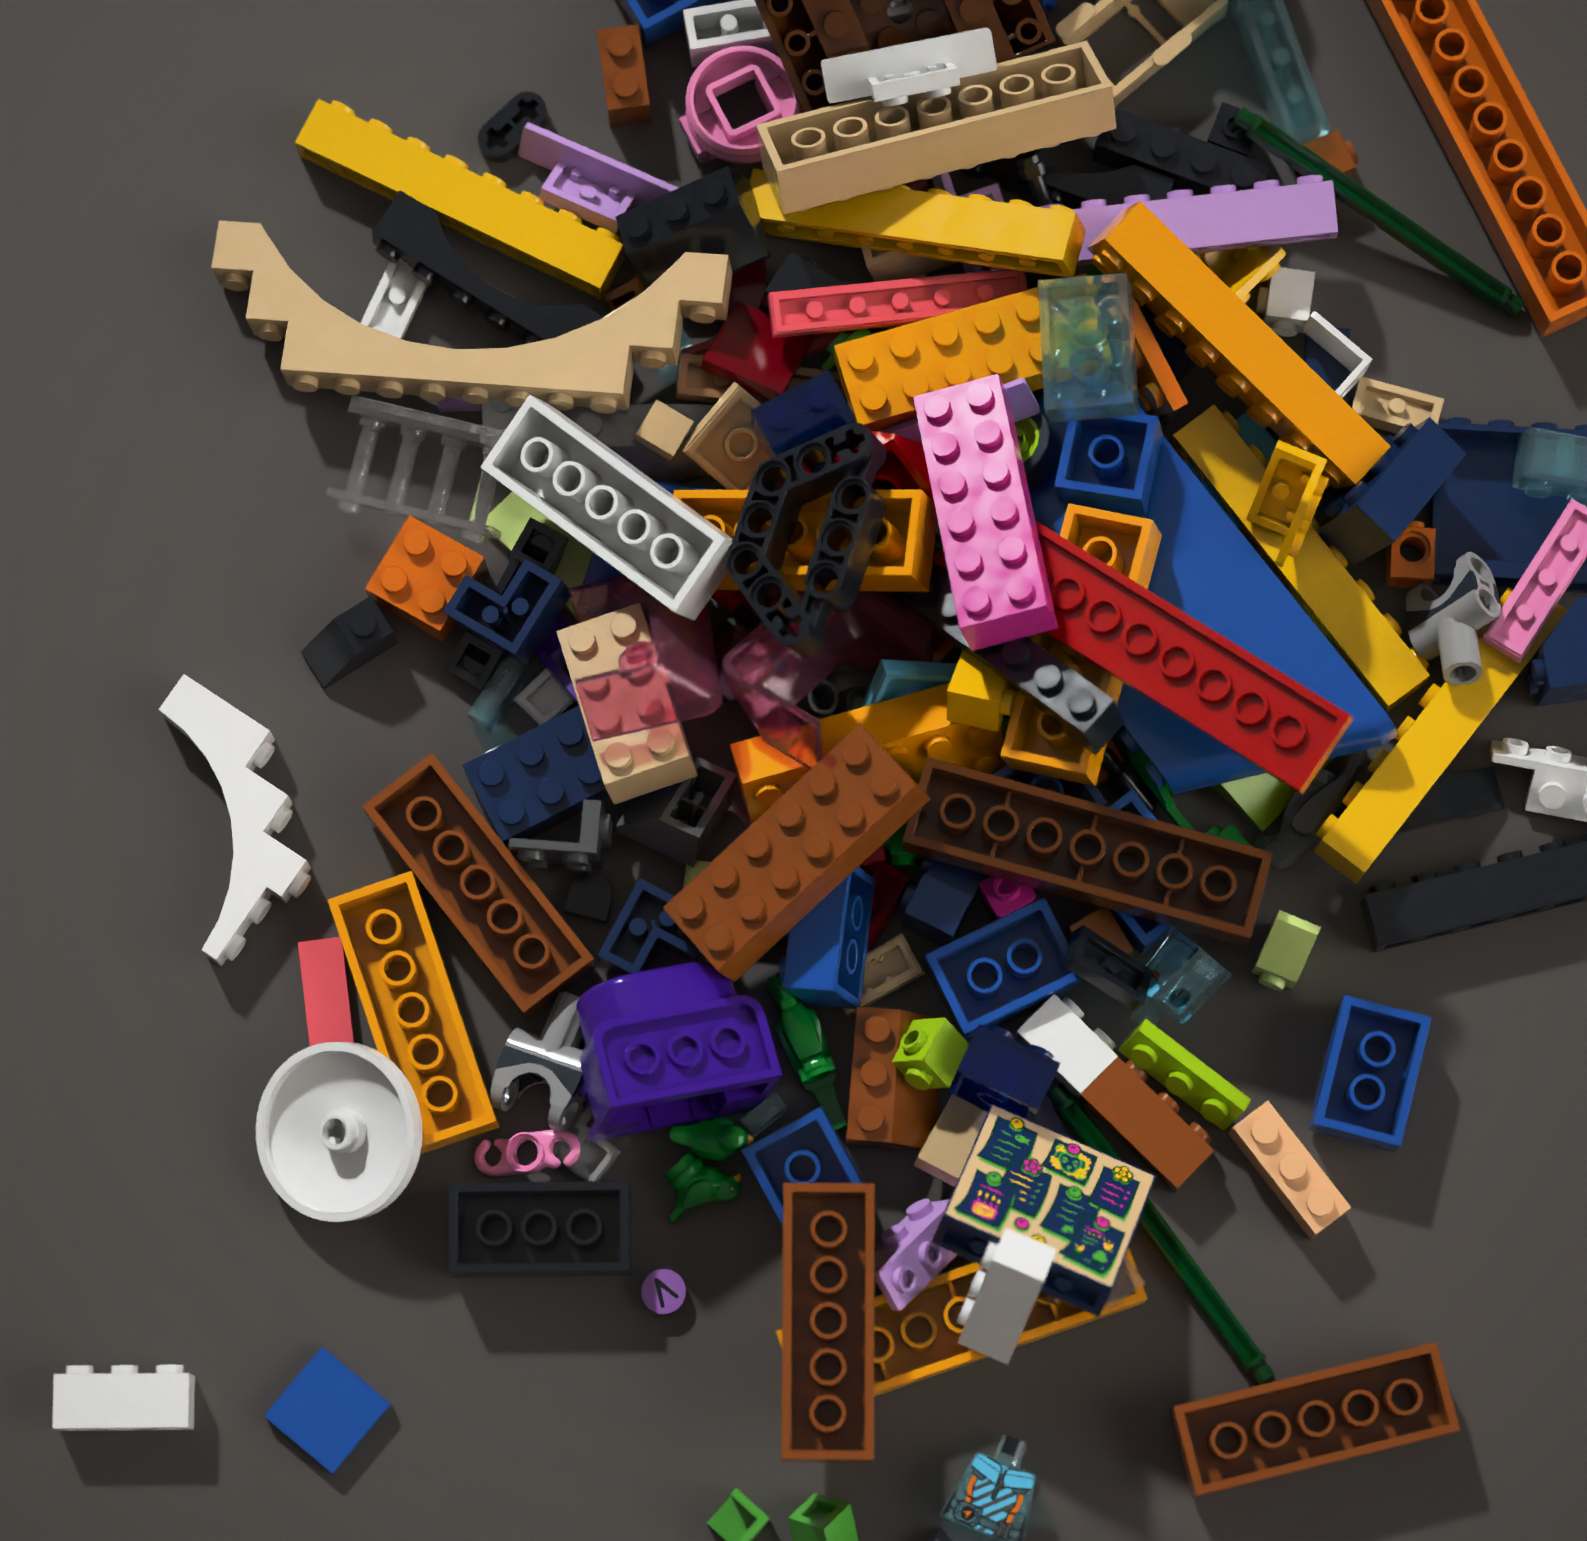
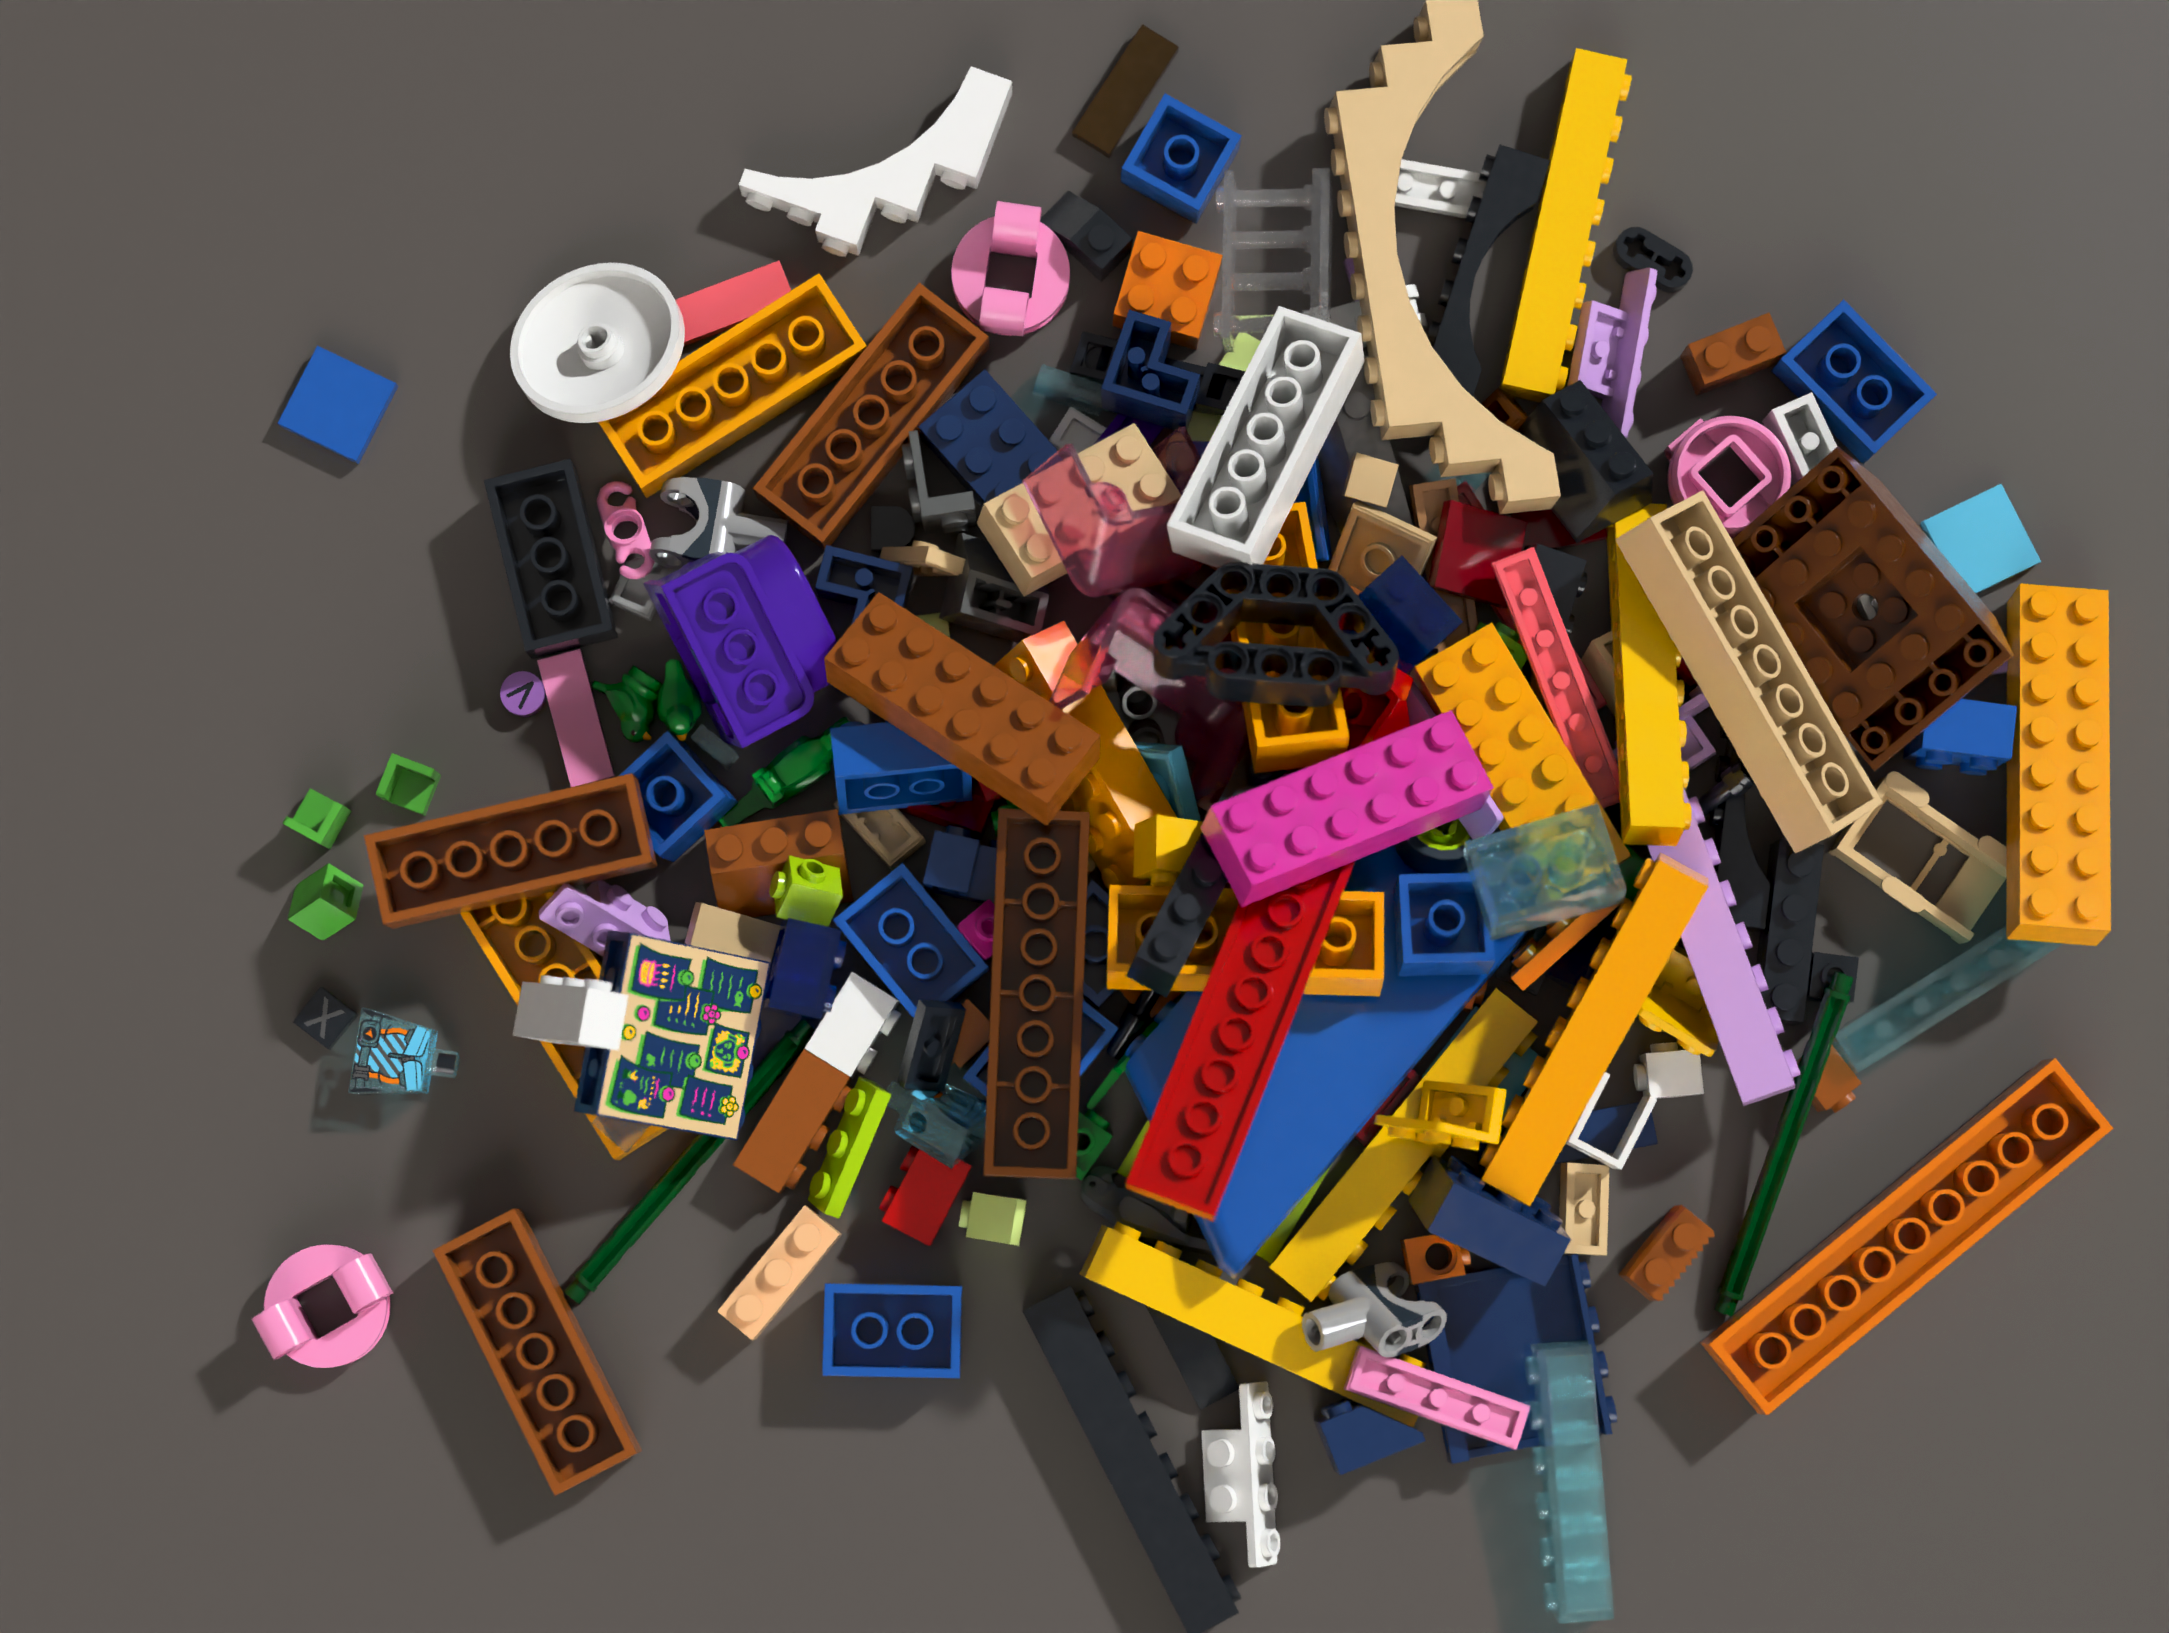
camera: 70 degrees right, 5 degrees up
(123, 1399) = (301, 211): white brick -> none
(218, 573) = (1125, 91): none -> dark brown tile
(302, 534) = (1180, 158): none -> blue brick
(332, 705) = (1016, 232): none -> bright pink piece
(633, 866) = (925, 559): none -> tan plate
(701, 1245) = (576, 718): none -> bright pink tile
(727, 1422) = (408, 784): none -> bright green panel
(909, 68) = (1800, 628): white bracket -> none
(1245, 1016) = (923, 1196): none -> red brick
(1454, 344) = (1666, 1253): none -> dark orange brick

